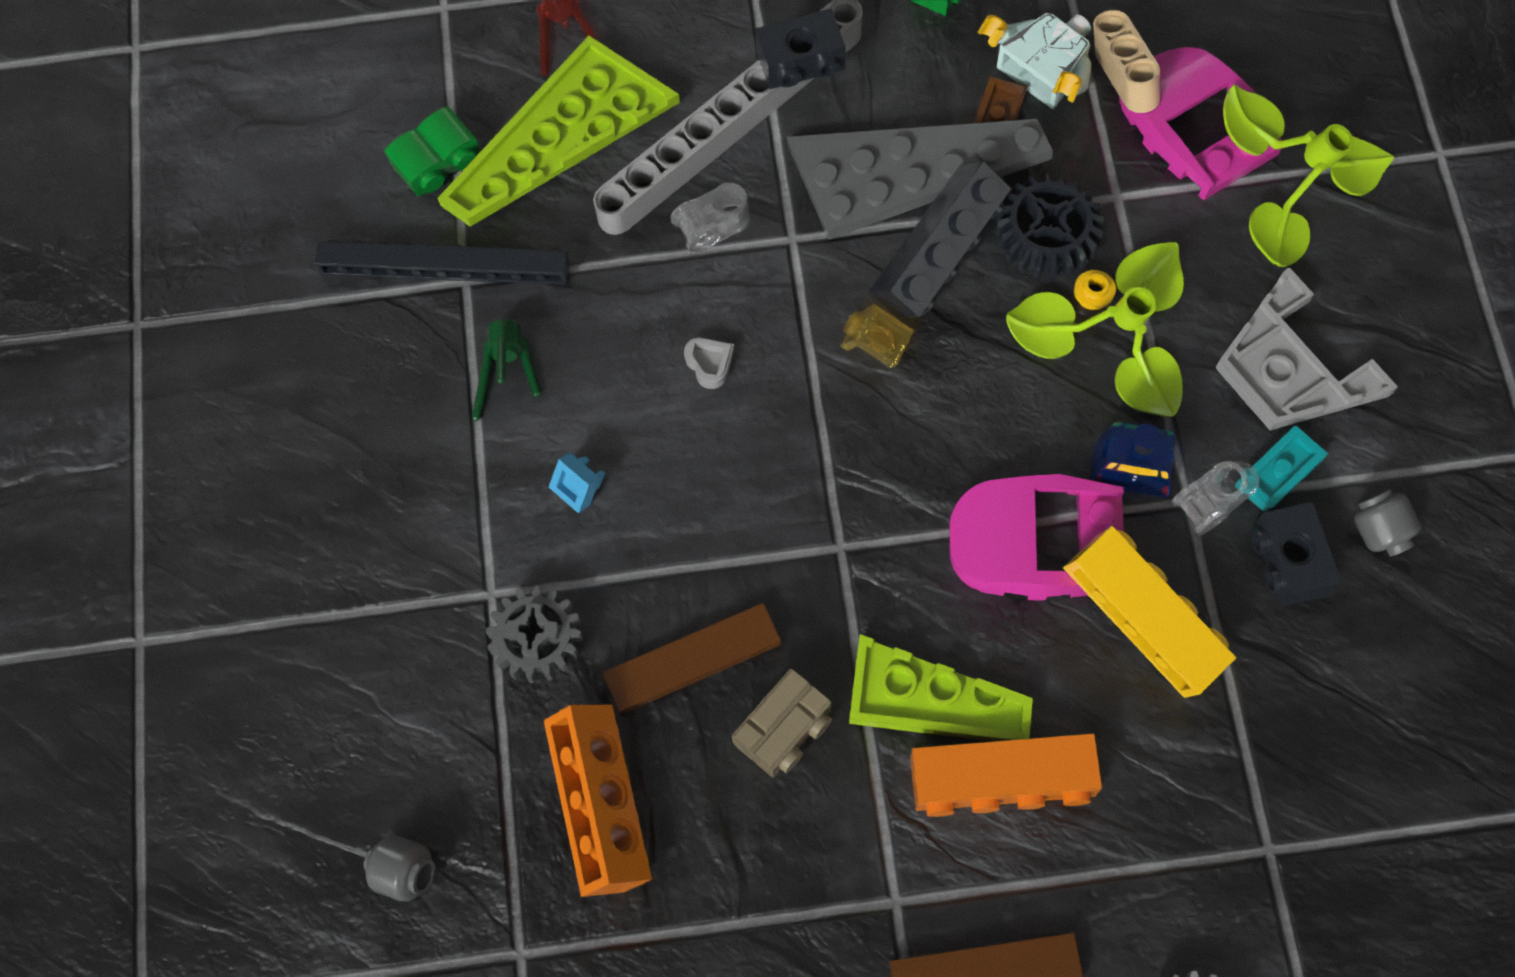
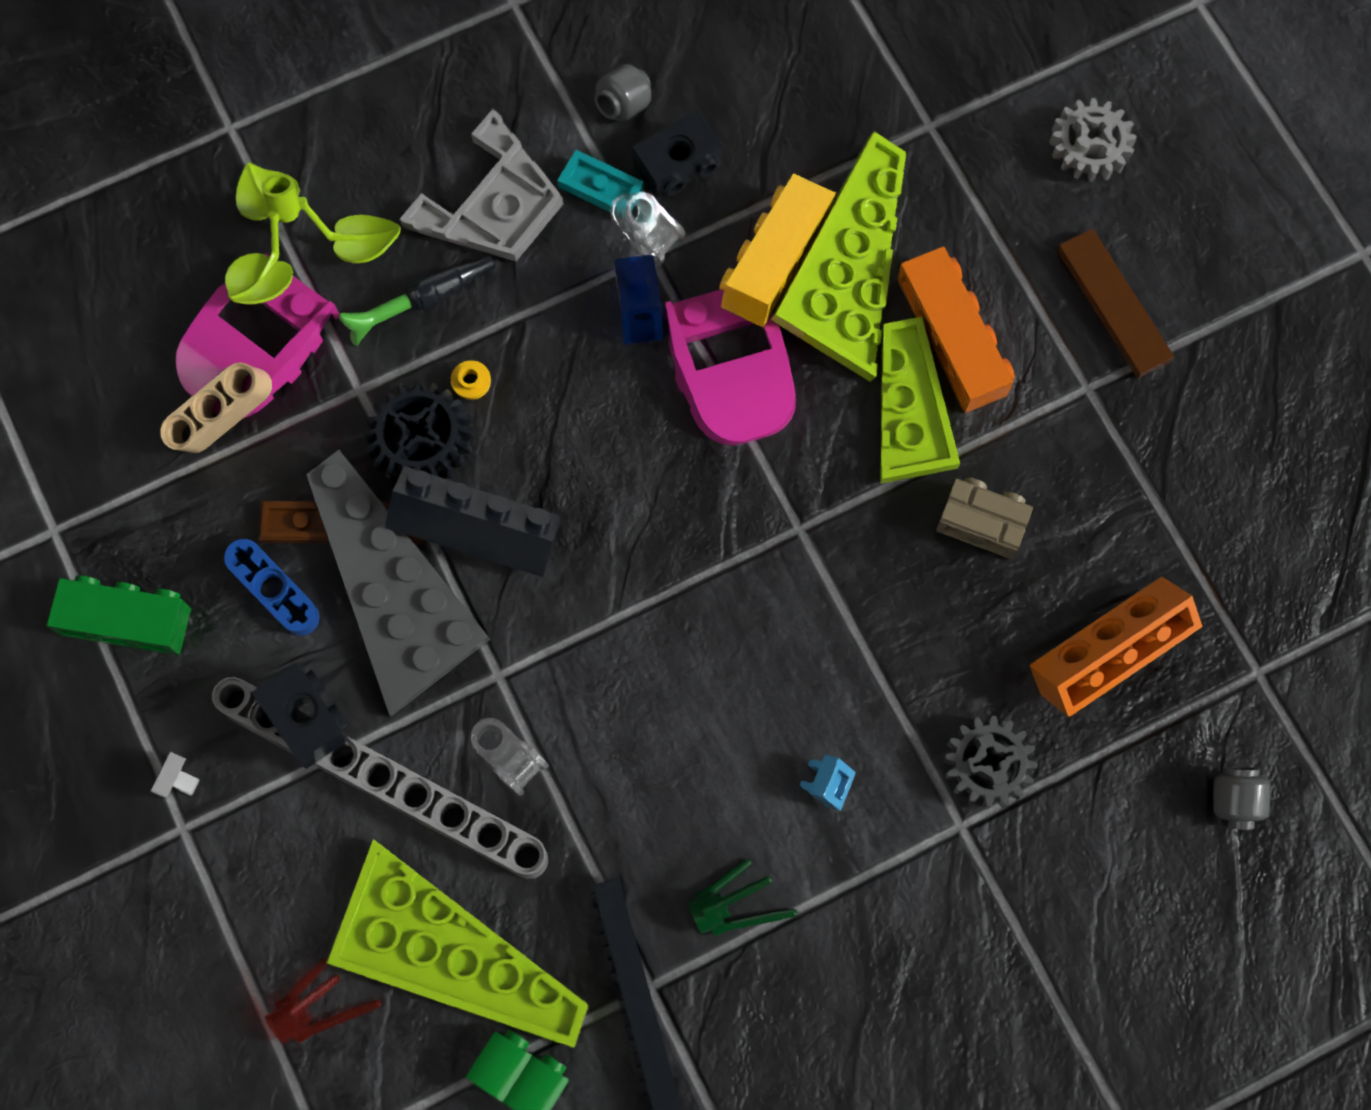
camera: 115 degrees left, 5 degrees up
(692, 658) = (953, 619): reddish brown tile -> none
(709, 360) = (657, 706): light grey tile -> none
(877, 334) = (583, 558): clear yellow bracket -> none
(950, 62) = (261, 559): none -> blue beam
(1043, 54) = (226, 486): light aqua torso -> none
(1100, 676) = (846, 271): none -> lime wing
(1150, 283) = (444, 334): lime plant -> none
(1200, 266) = (418, 295): none -> black piece

